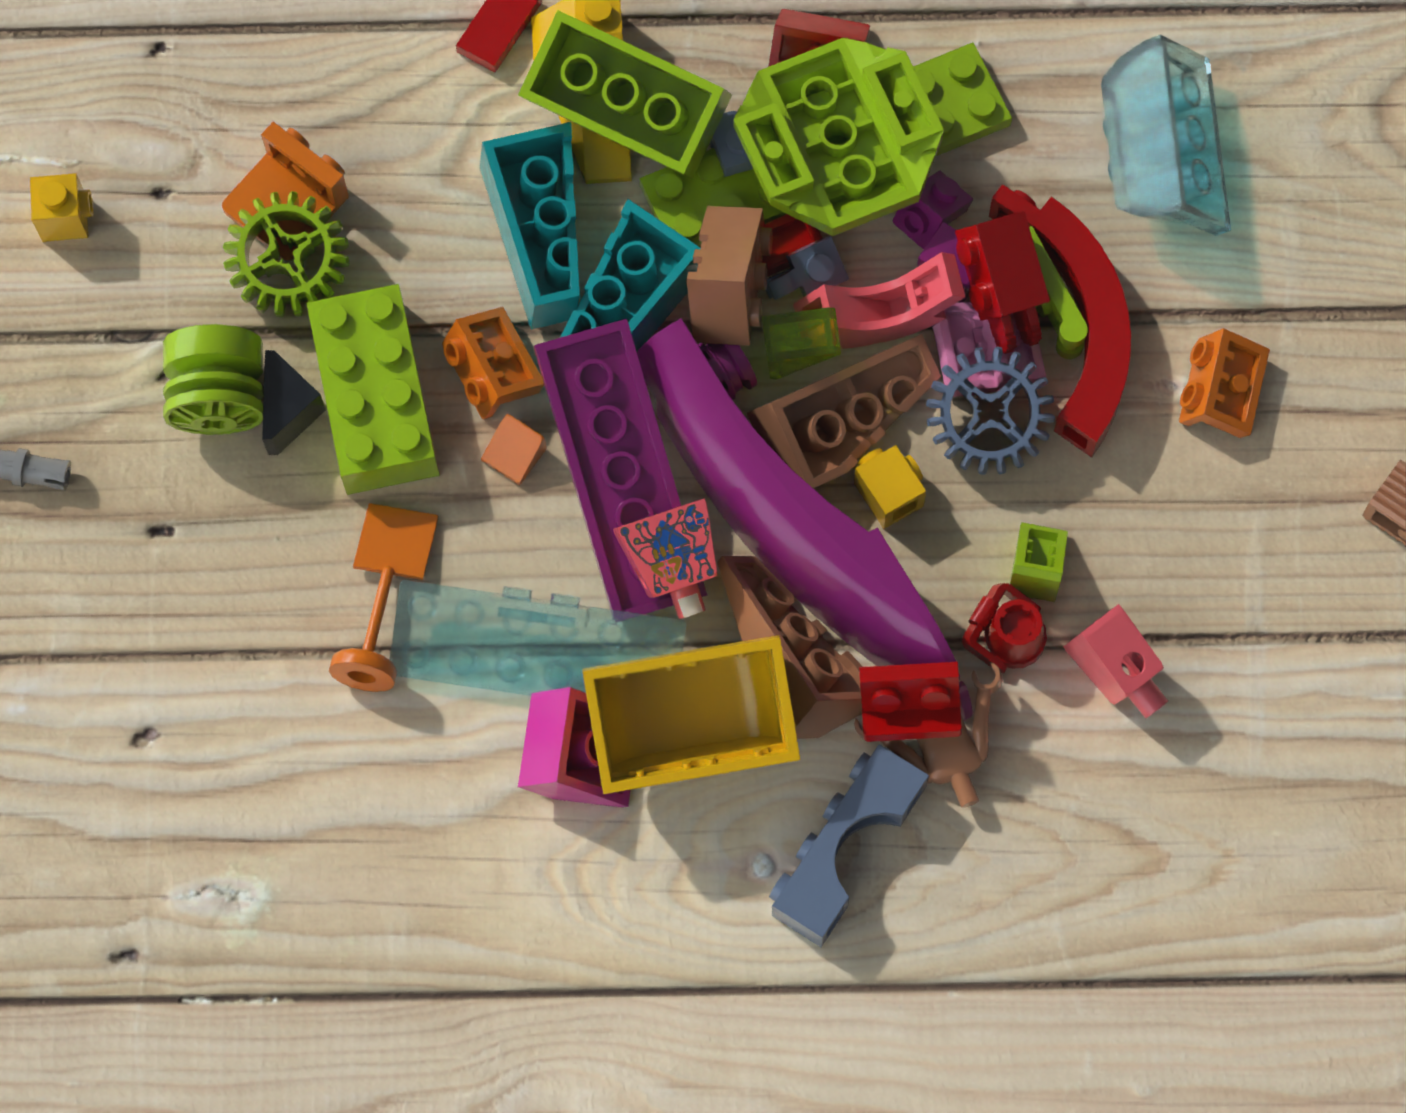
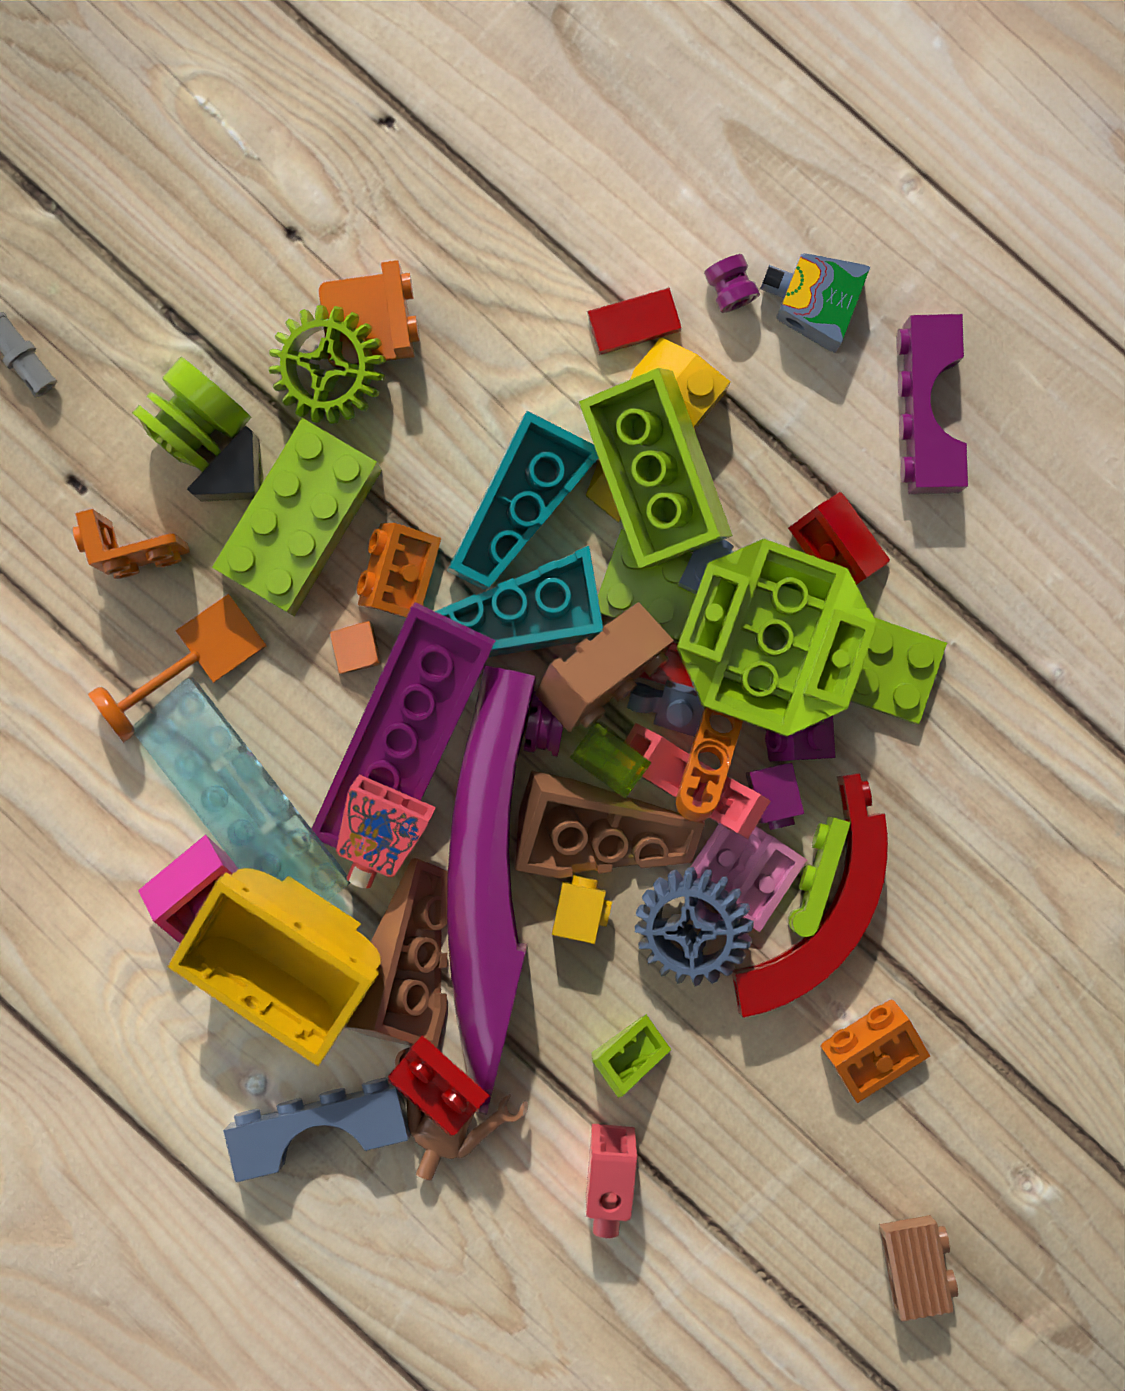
camera: 40 degrees right, 15 degrees up
(60, 207) = (207, 185): yellow brick -> none
(258, 541) = (98, 539): none -> orange bracket
(877, 290) = (720, 745): none -> orange beam
(1004, 277) = (793, 842): red hinge -> none
(1012, 633) = (564, 1085): red piece -> none
(1165, 136) = (1005, 845): clear light blue windscreen -> none

